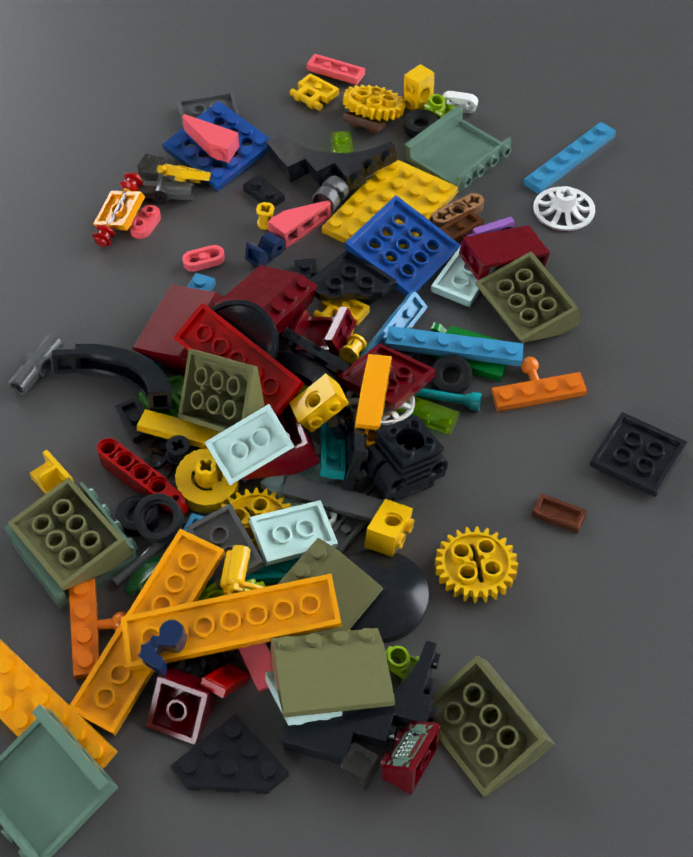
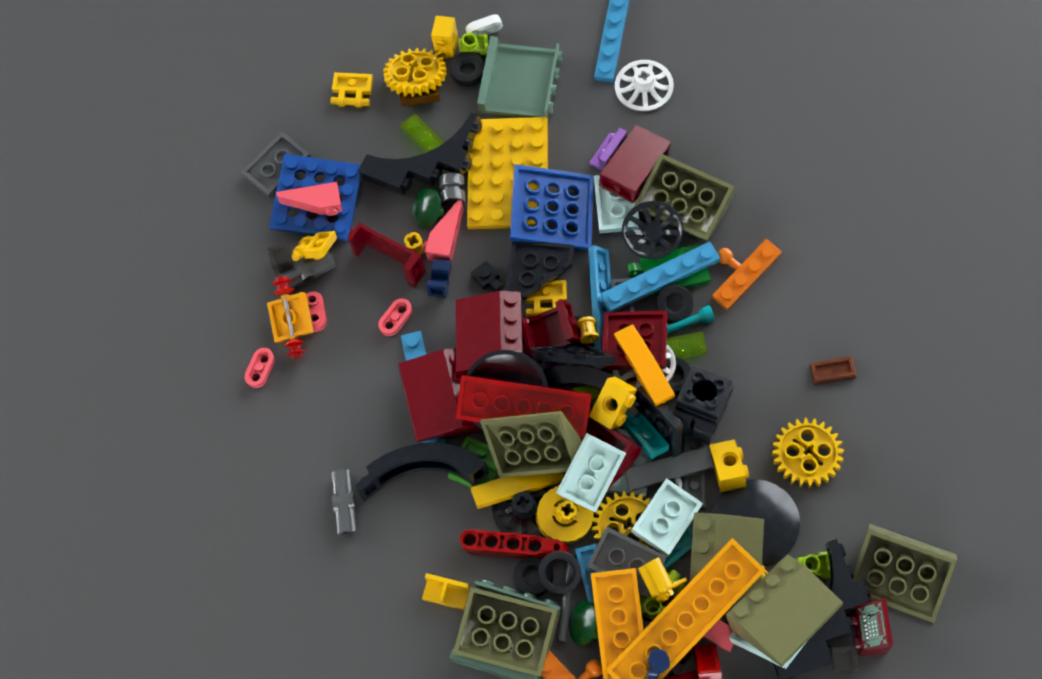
camera: 25 degrees left, 15 degrees up
(64, 234) = (260, 369): none -> coral plate
(130, 414) = (462, 499): black plate -> none
(227, 188) = (413, 265): none -> dark red panel
(263, 191) = (390, 220): black plate -> none
(299, 195) = (427, 208): none -> dark green dish
(335, 69) = (351, 53): coral plate -> none
(462, 225) = (579, 155): reddish brown plate -> none
(471, 202) = (563, 133): medium nougat beam -> none
(477, 312) = (652, 231): none -> black wheel
(638, 454) = (855, 284): black plate -> none

